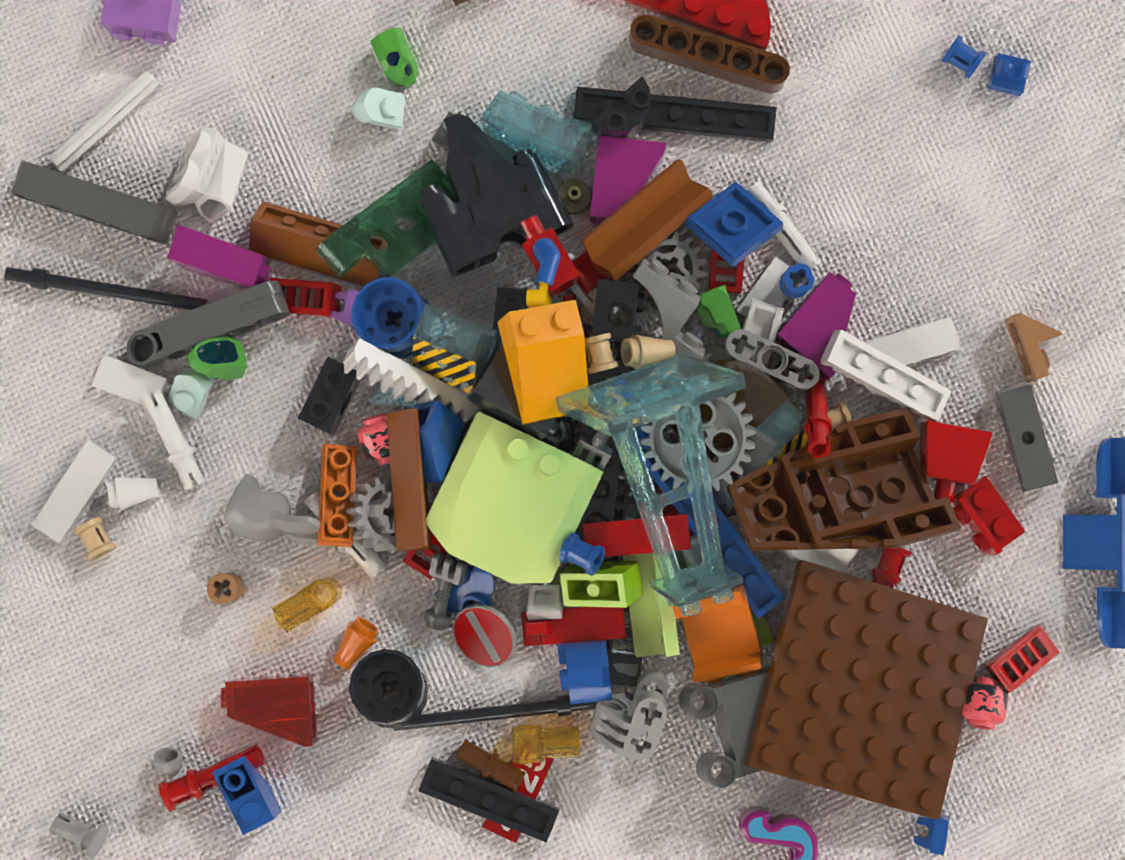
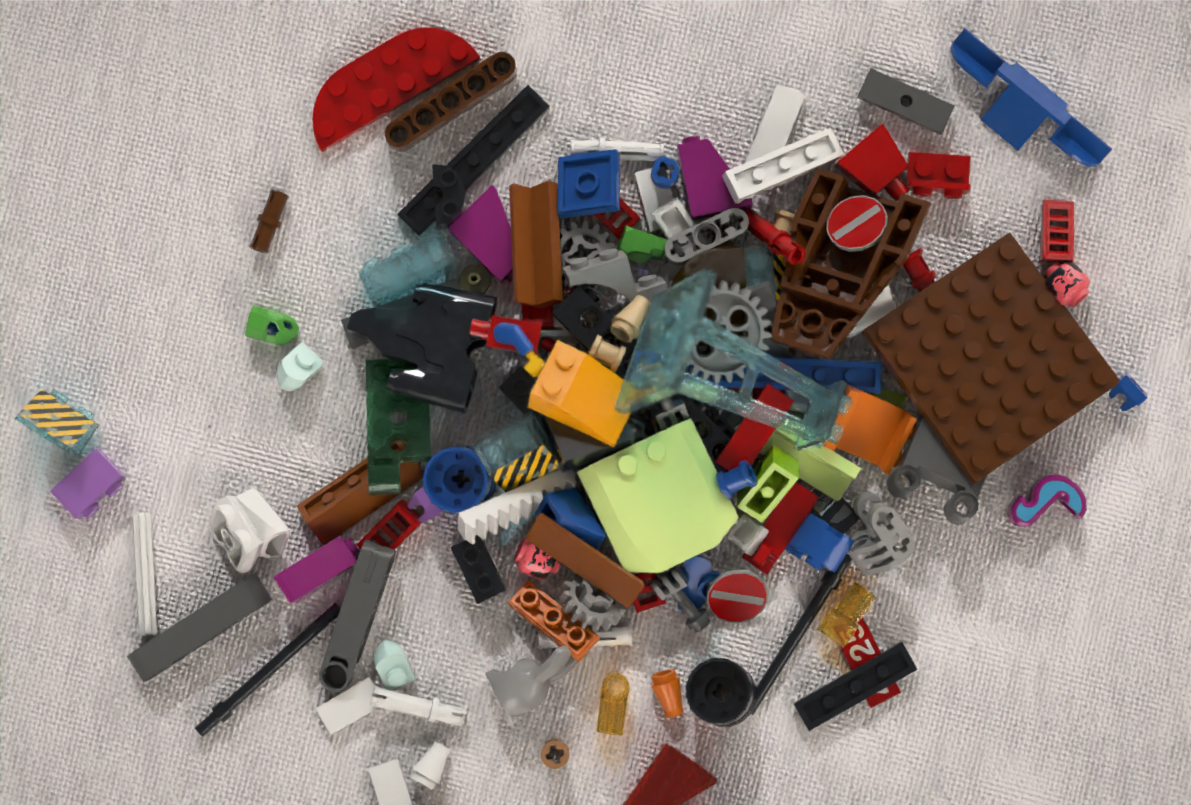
camera: 50 degrees left, 0 degrees up
(219, 358) = (388, 626): bright green rock -> none
(490, 765) = (832, 665): reddish brown pin -> none
(889, 479) = (857, 223): none -> red piece
(1025, 337) = (834, 43): medium nougat slope -> none

